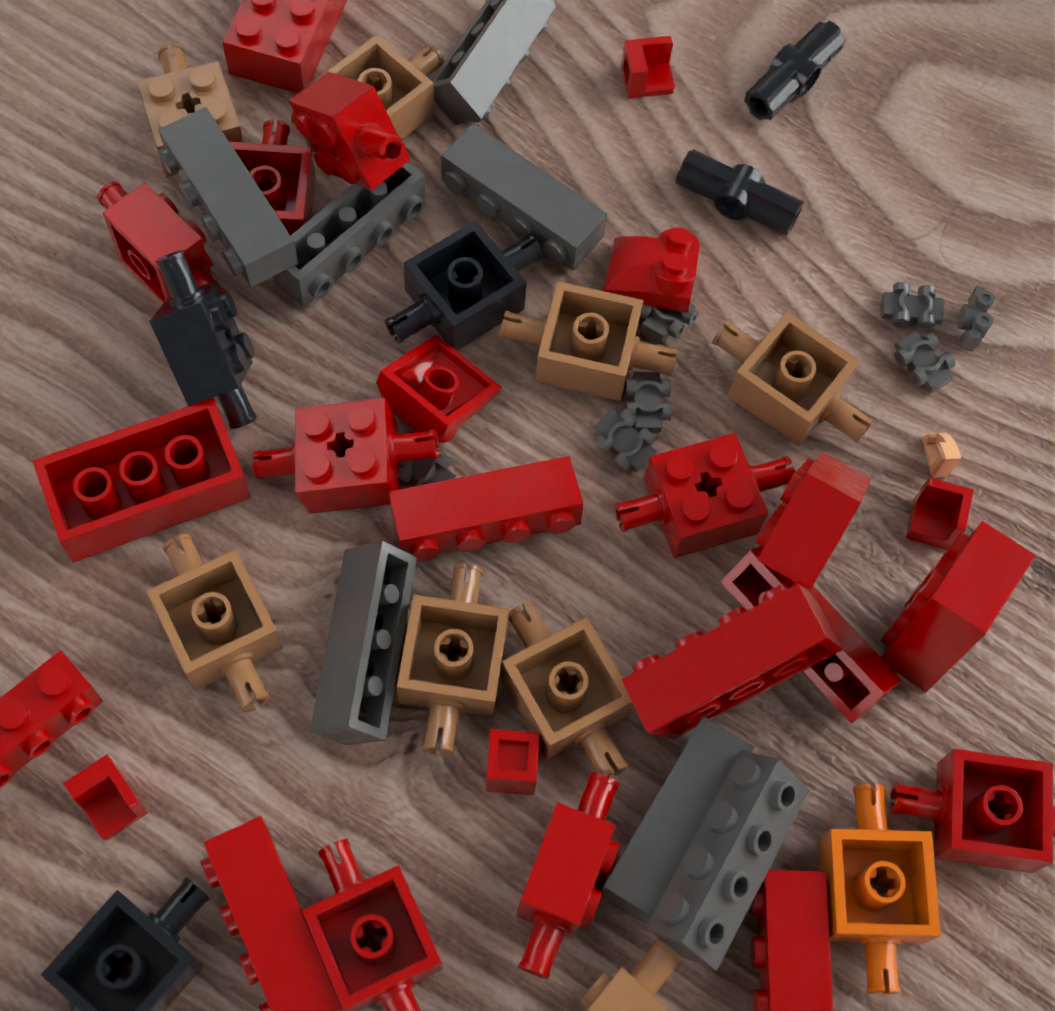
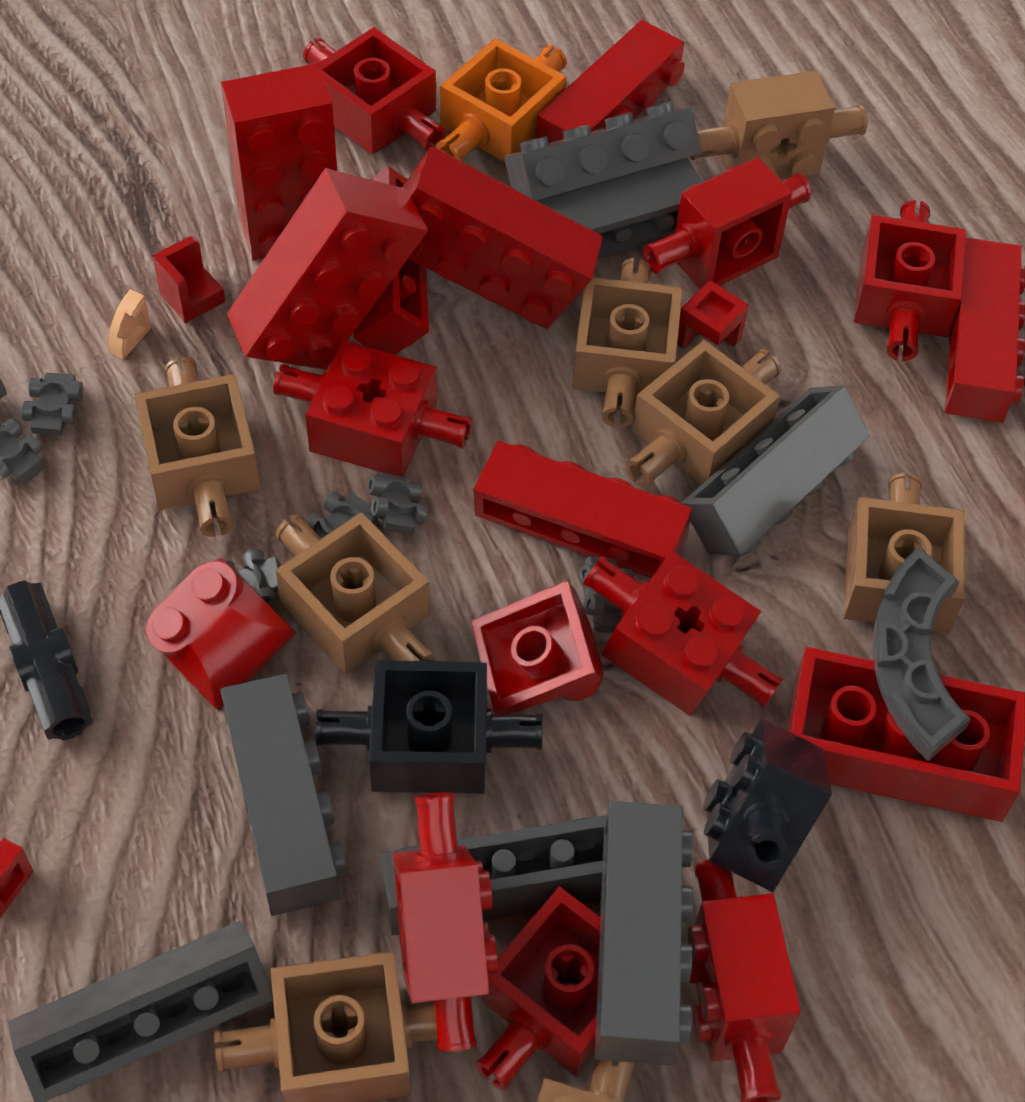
camera: 140 degrees left, 10 degrees down
(169, 511) = (904, 659): none -> dark grey tile

